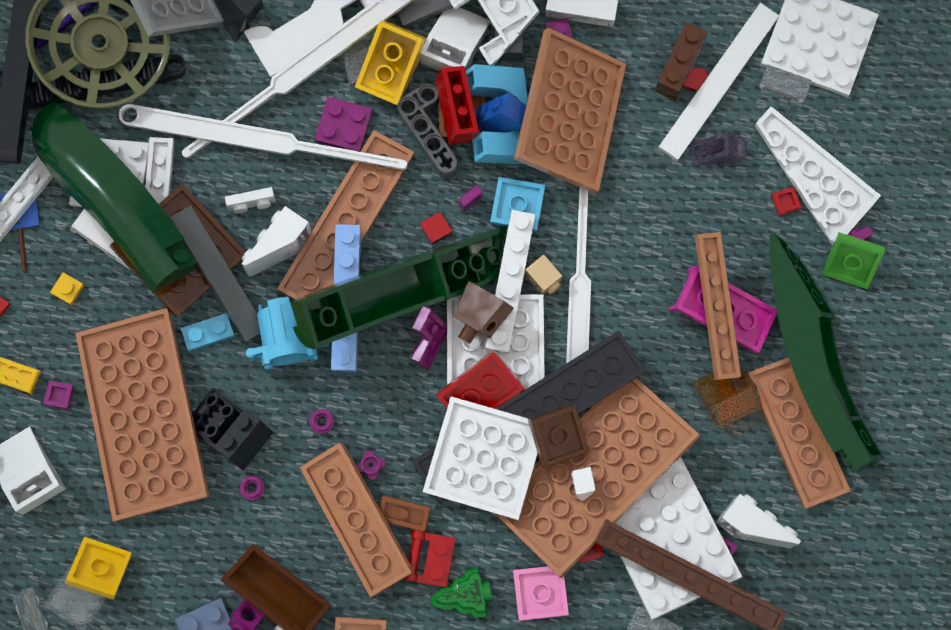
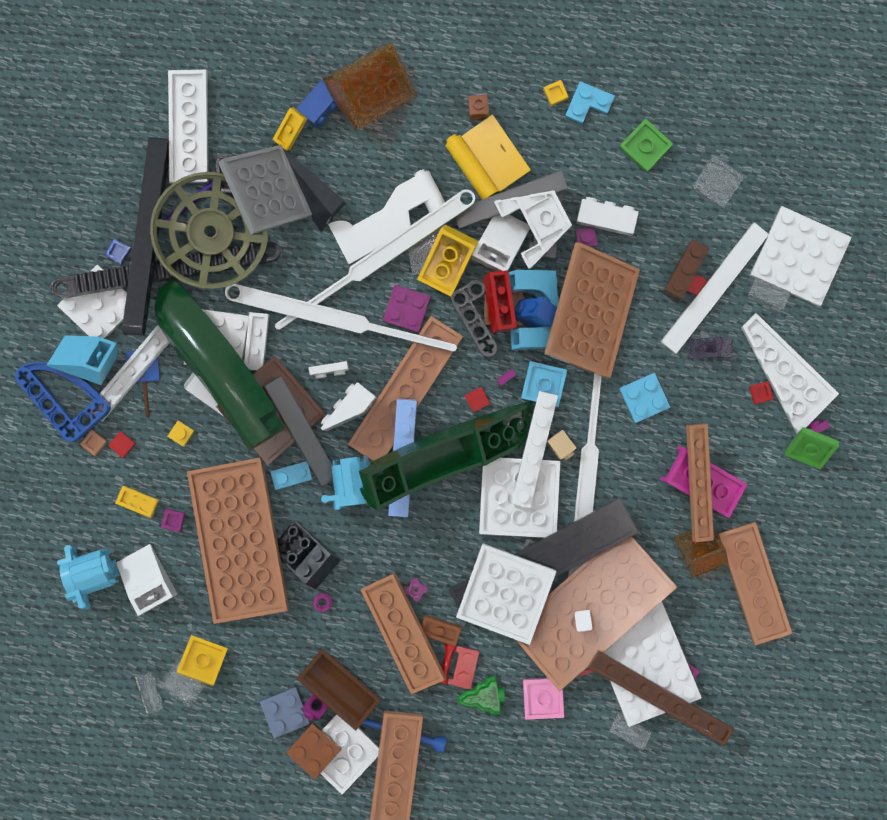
camera: 10 degrees right, 10 degrees up
(319, 414) = (383, 547): magenta plate -> none
(433, 332) = (469, 488): magenta plate -> none
(480, 312) = (509, 476): reddish brown torso -> none
(485, 383) = (508, 534): red plate -> none
(558, 436) = (565, 581): reddish brown tile -> none
(643, 215) = (644, 398): none -> medium azure plate
(750, 523) = (704, 651): white slope -> none
(813, 354) = (773, 528): dark green slope -> none

